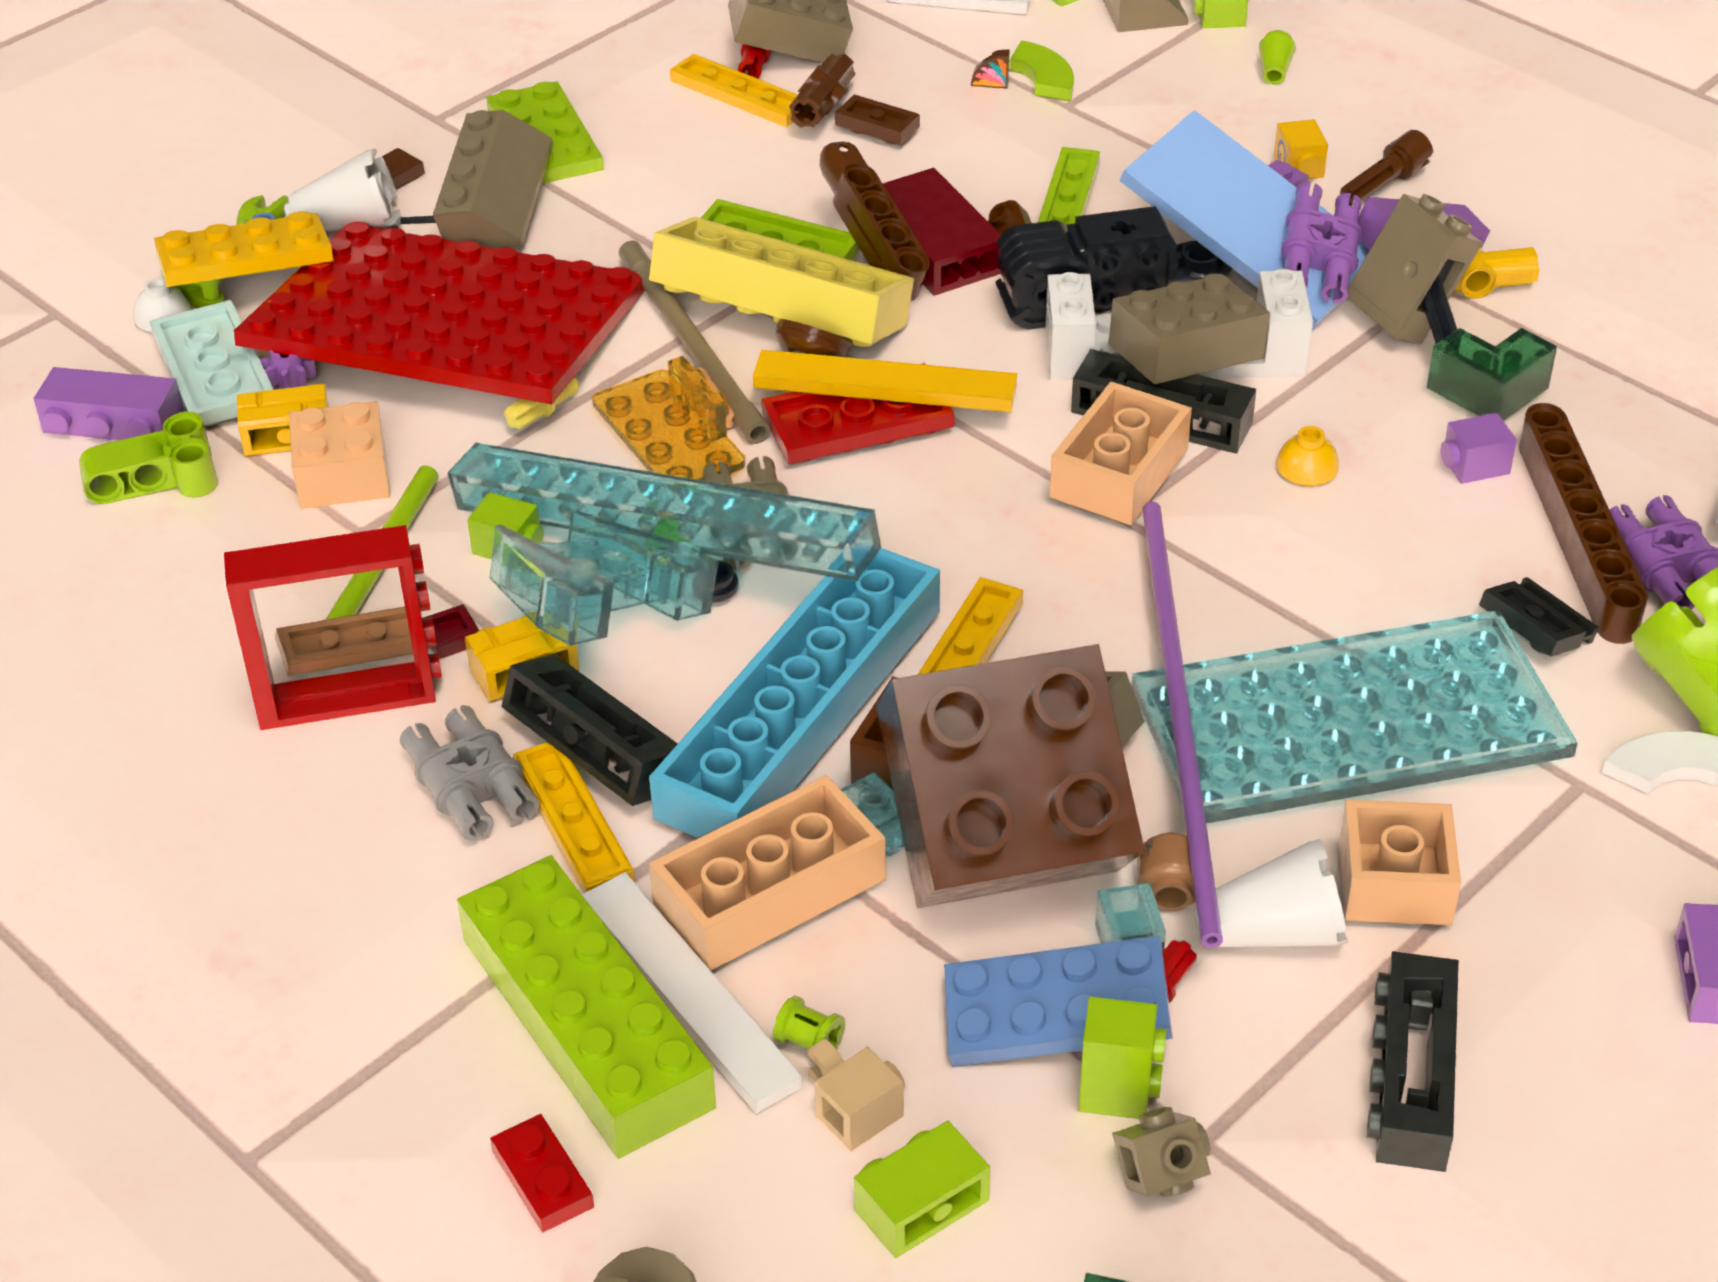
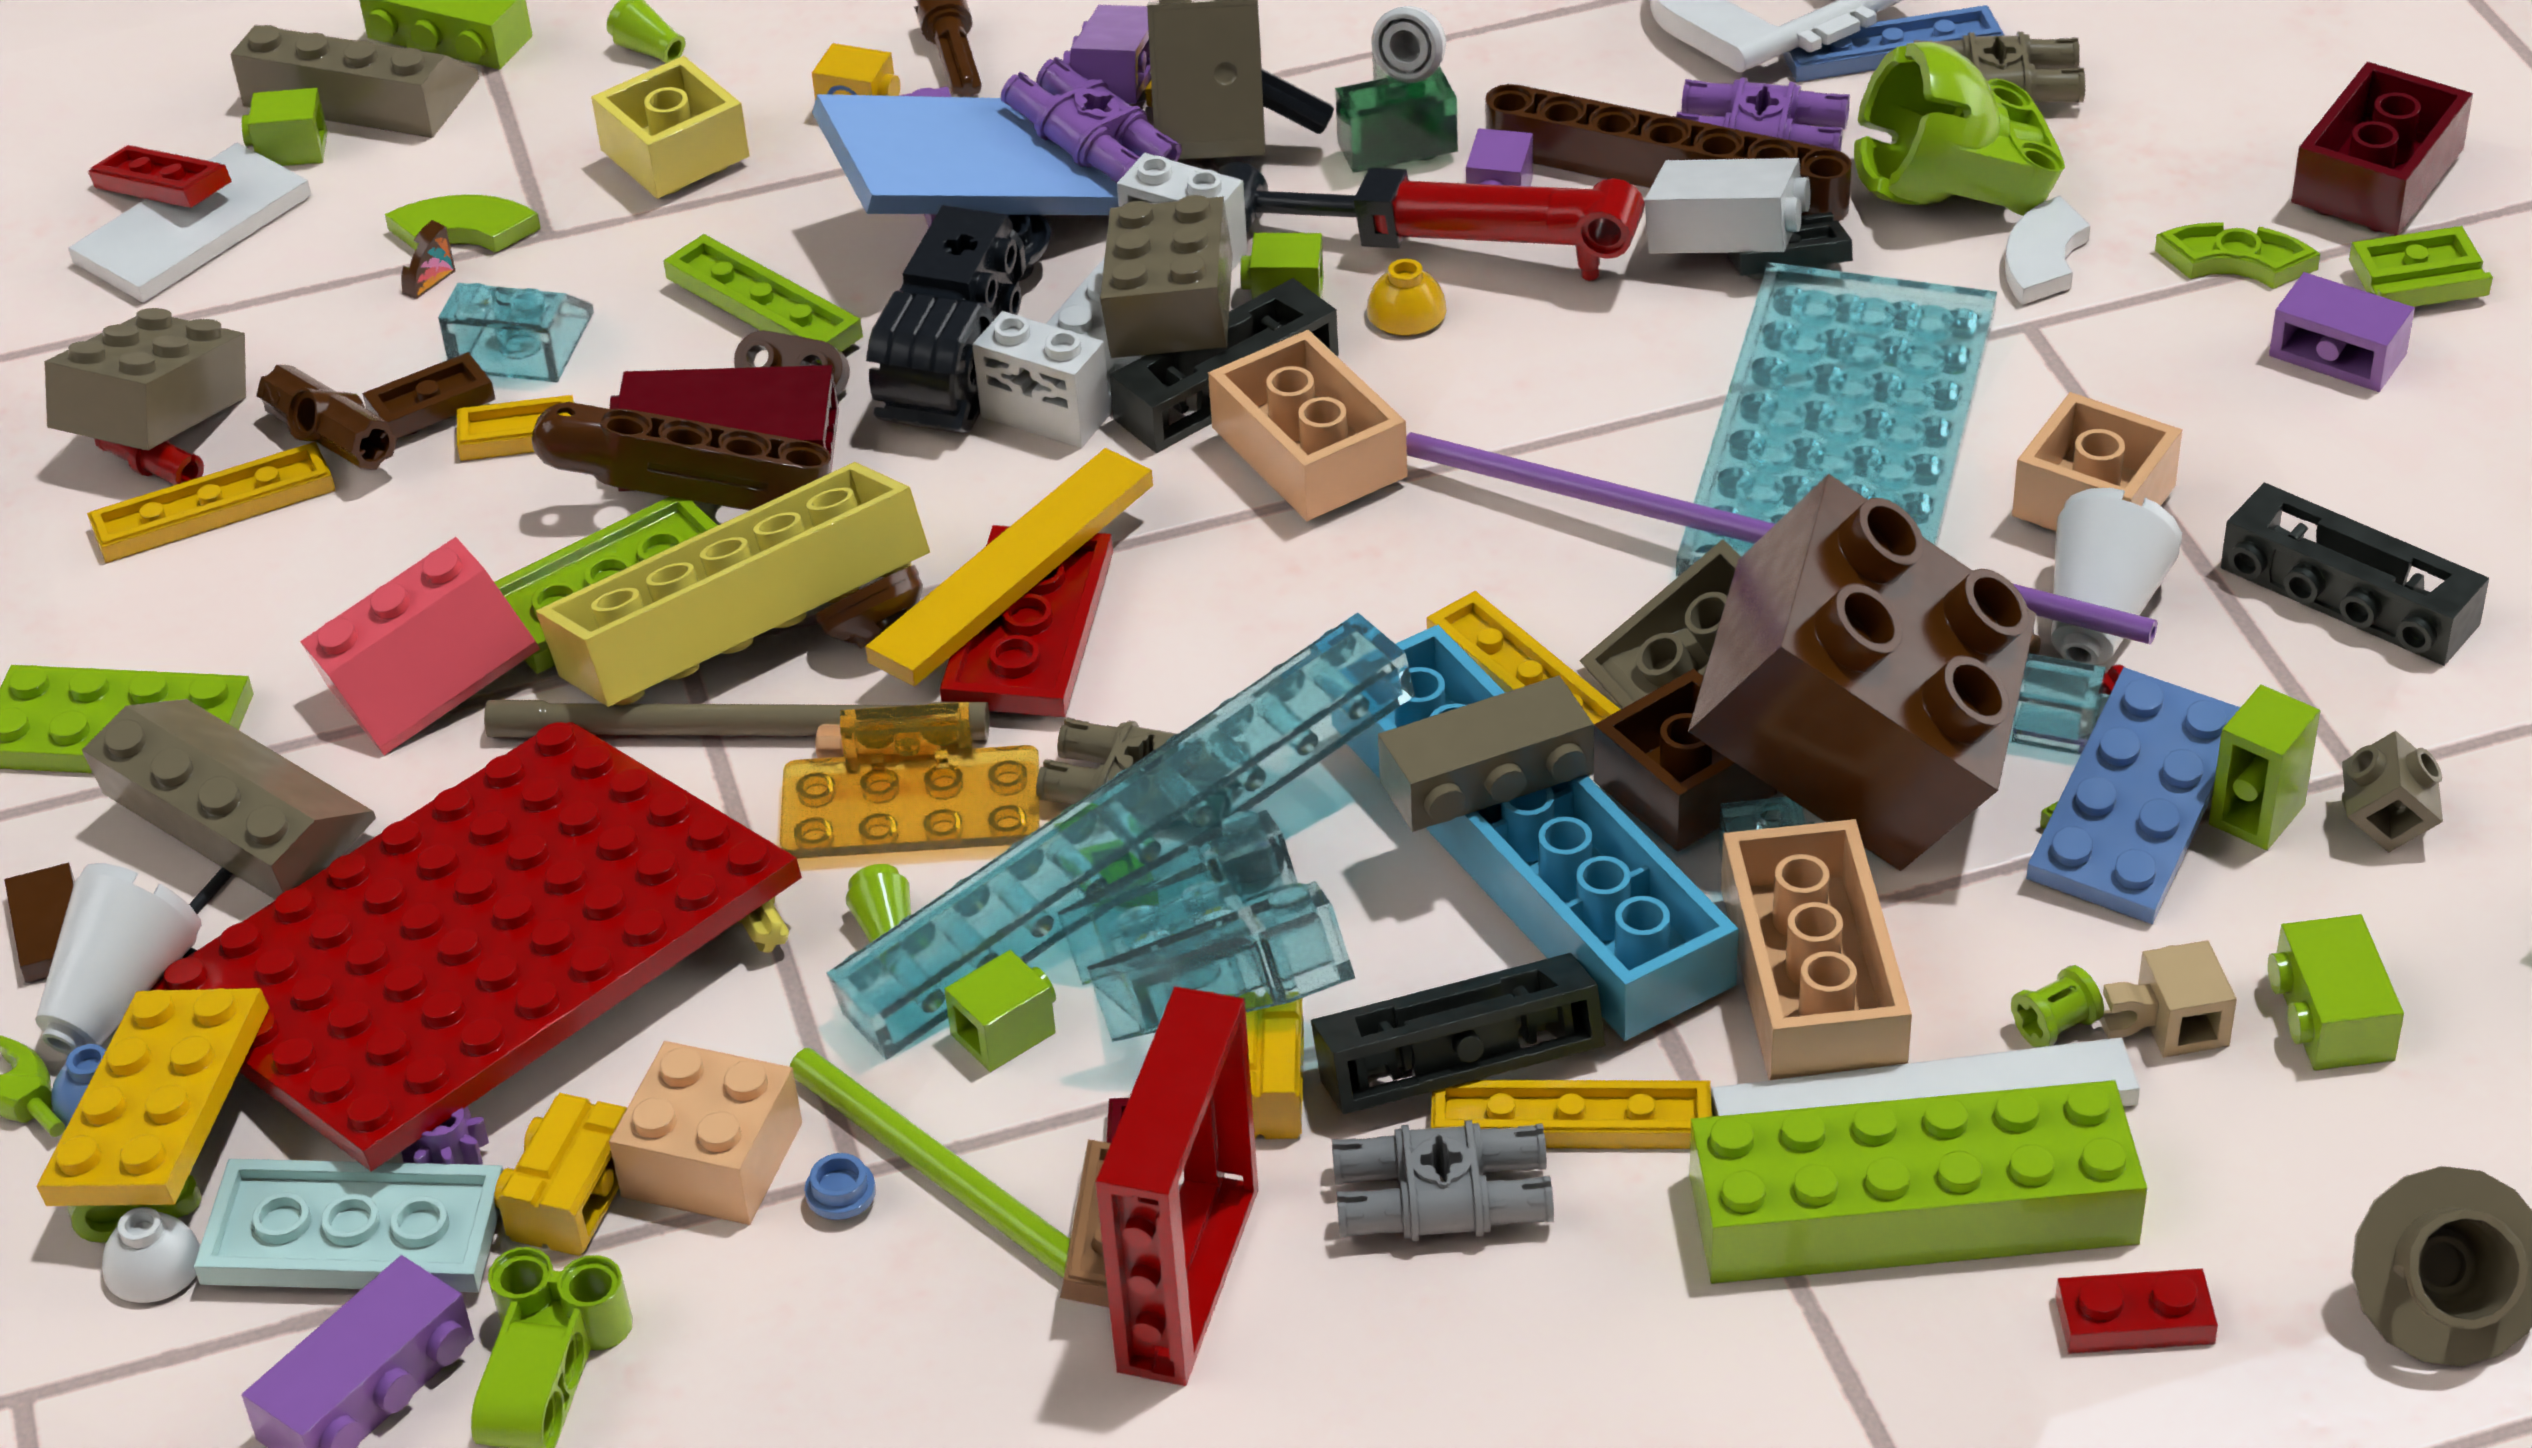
camera: 60 degrees left, 0 degrees up
(334, 521) = (839, 1187): none -> medium blue plate
(570, 443) = (878, 899): none -> lime cone
(650, 192) = (419, 645): none -> coral slope
(806, 626) = (1486, 753): none -> dark tan brick
(885, 158) = (501, 427): none -> yellow tile
(960, 121) = (514, 329): none -> clear light blue slope
(1175, 88) = (670, 126): none -> light yellow brick
(1282, 392) = (1280, 258): none -> lime brick
(1378, 410) = (1392, 207): none -> red piece
(1521, 333) = (1408, 43): none -> white brick
(1529, 561) = (1725, 205): none -> white brick

